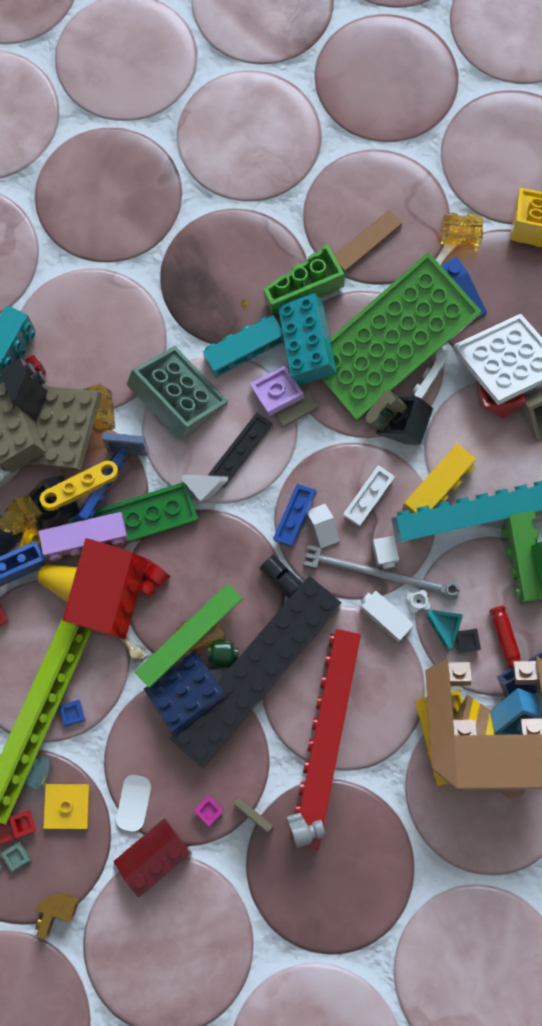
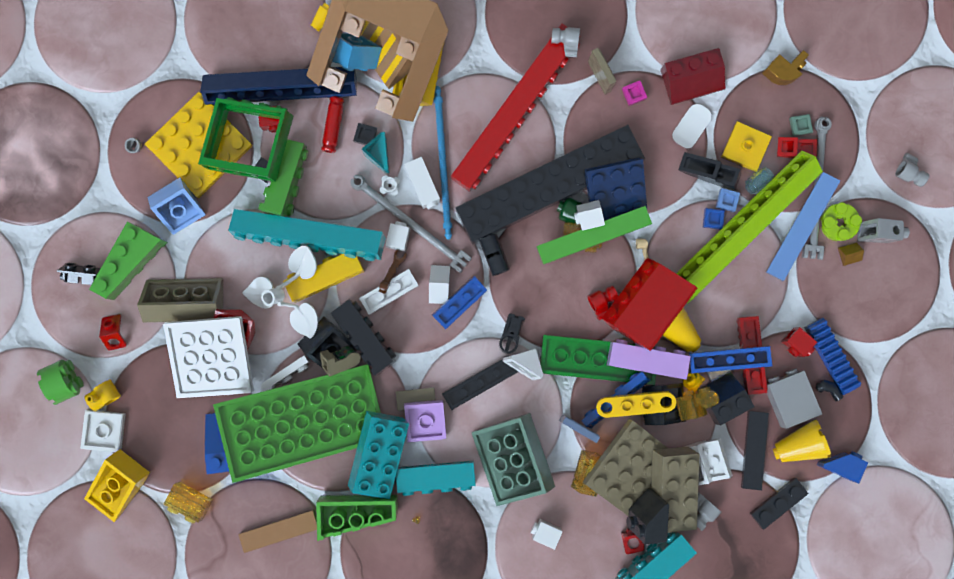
camera: 160 degrees left, 10 degrees up
(64, 738) = (727, 200): none -> medium blue plate
(95, 761) = (710, 171): none -> black slope
(117, 339) = (546, 533): none -> white brick
(201, 651) = (589, 215): none -> white brick
(231, 511) = (512, 331): none -> black piece
(371, 441) = (364, 337): none -> black wedge
(375, 499) = (397, 261): none -> reddish brown piece
(411, 711) = (447, 225): none -> dark azure hose
(492, 443) = (264, 295): none -> white plant

